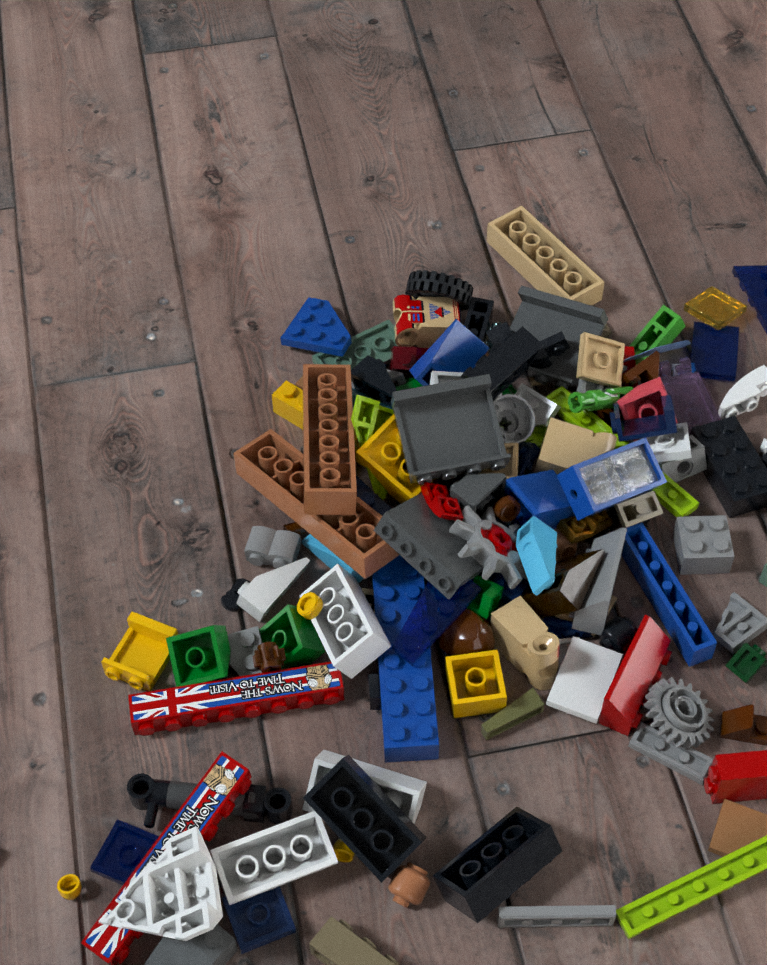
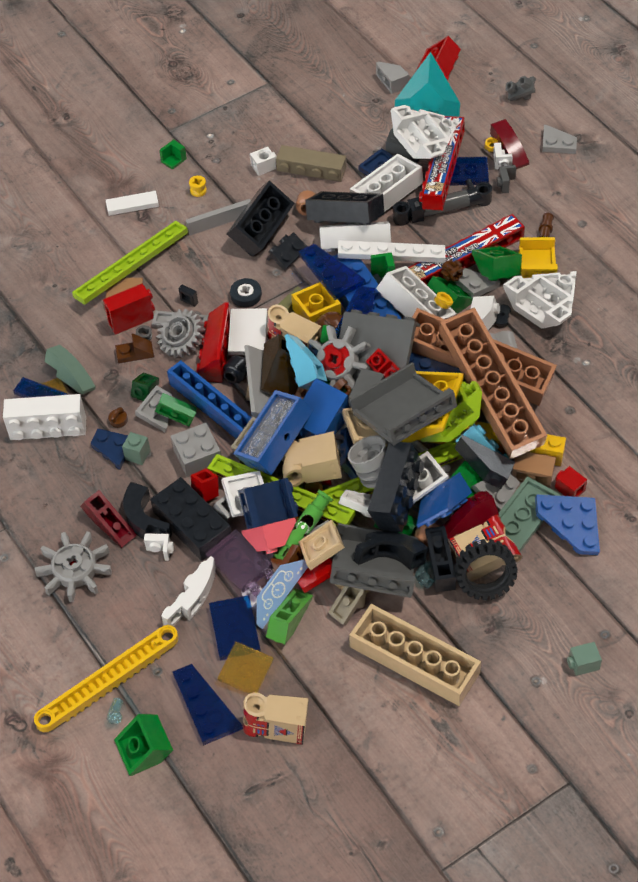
camera: 160 degrees right, 0 degrees up
(43, 874) = (509, 142): none -> dark red slope
(74, 856) = (500, 158): none -> white bracket
(95, 699) = (546, 226): none -> reddish brown pin
(97, 806) = (506, 174): none -> dark grey bracket
(171, 577) = (543, 298): none -> white wedge
(291, 363) = (570, 482): none -> red brick
(338, 712) = (399, 251): none -> white plate
(357, 704) = (382, 264): none -> green panel
(385, 216) = (584, 659): none -> sand green brick
(438, 705) = (331, 273): none -> clear blue wing
(476, 810) = (287, 250): none -> black bracket
(553, 772) = (244, 285): none -> black bush
(649, 782) = (188, 295): none -> black tile
(702, 245) = (275, 717): none -> tan piece
(706, 492) = (205, 484): none -> red brick
(717, 604) = (176, 409): none -> green panel
(731, 742) = (146, 329): none -> dark grey bush

